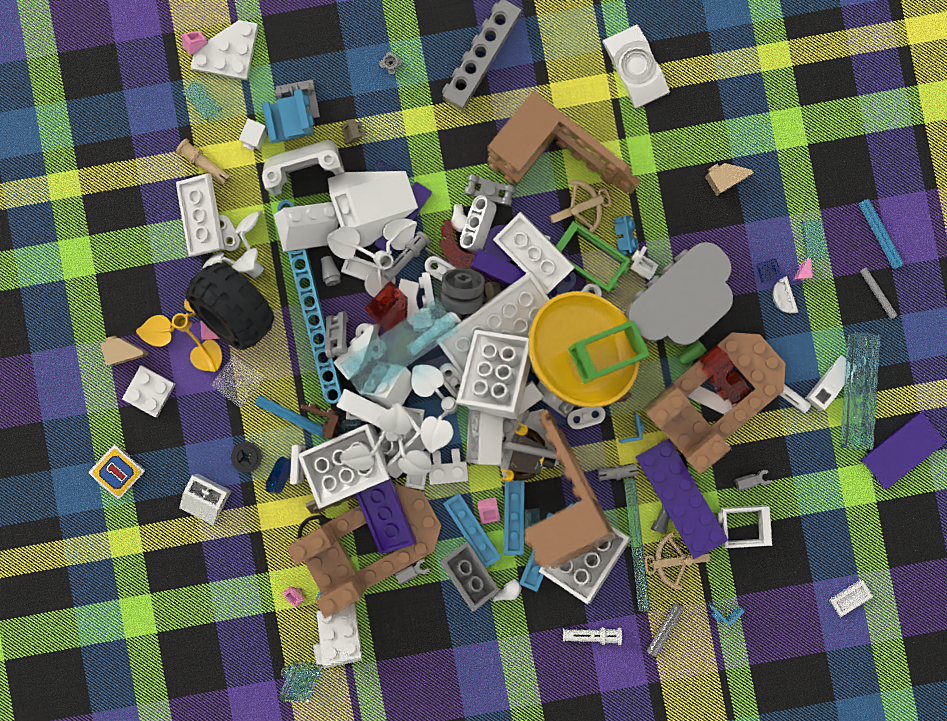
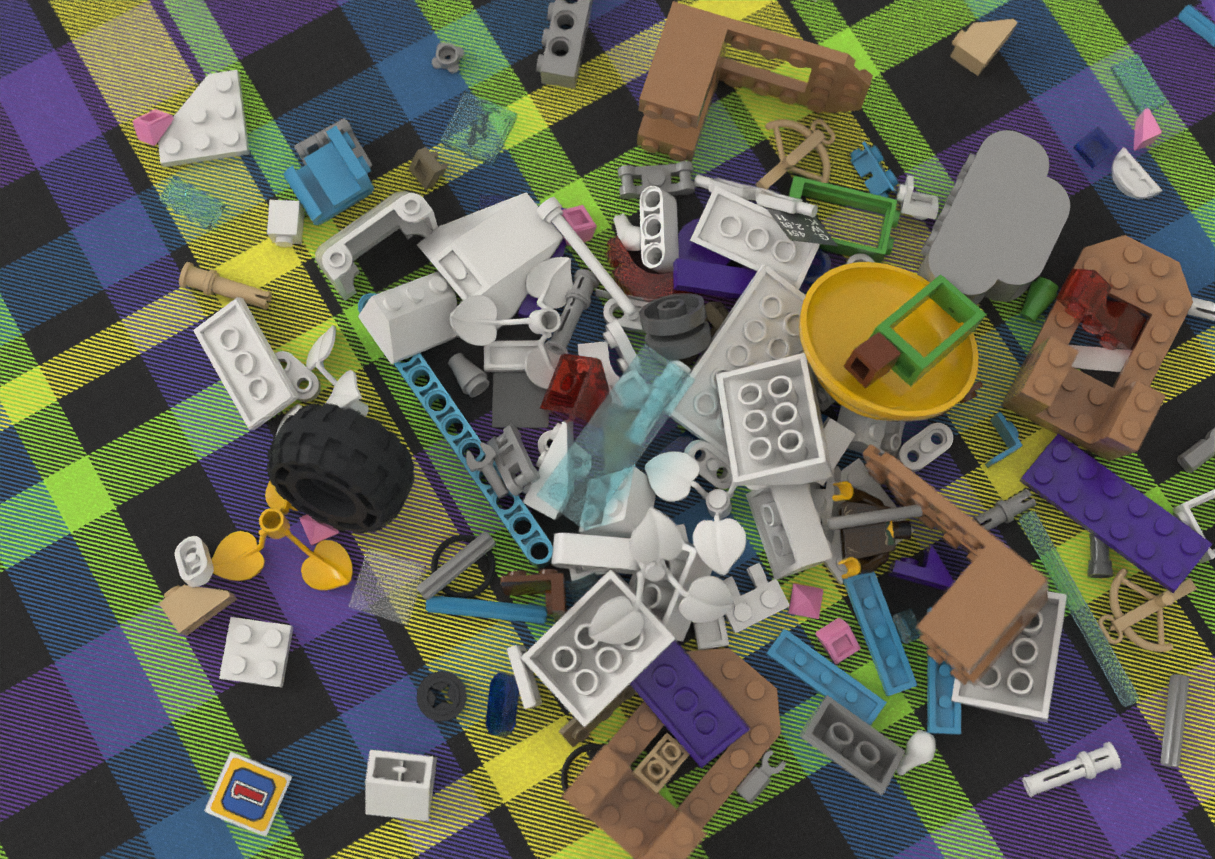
camera: 30 degrees left, 10 degrees down
(129, 325) = (194, 561): none -> white plate
(269, 382) = (481, 588): none -> black tyre
(281, 384) = (456, 565): none -> light grey axle
(319, 335) = (488, 470): none -> light grey bar
(353, 297) = (517, 401): none -> dark grey sticker
(356, 544) = (660, 763): none -> tan slope
(393, 116) = (478, 129): none -> clear light blue tile
(415, 190) = (551, 211): none -> white piece
(429, 201) = (580, 222): none -> bright pink slope
(479, 480) = (805, 601): none -> bright pink slope
(549, 228) = (762, 196): none -> white piece
(558, 492) = (931, 573): none -> dark purple slope
(562, 258) = (802, 228): none -> dark grey sticker
(565, 361) = (872, 360): none -> copper brick

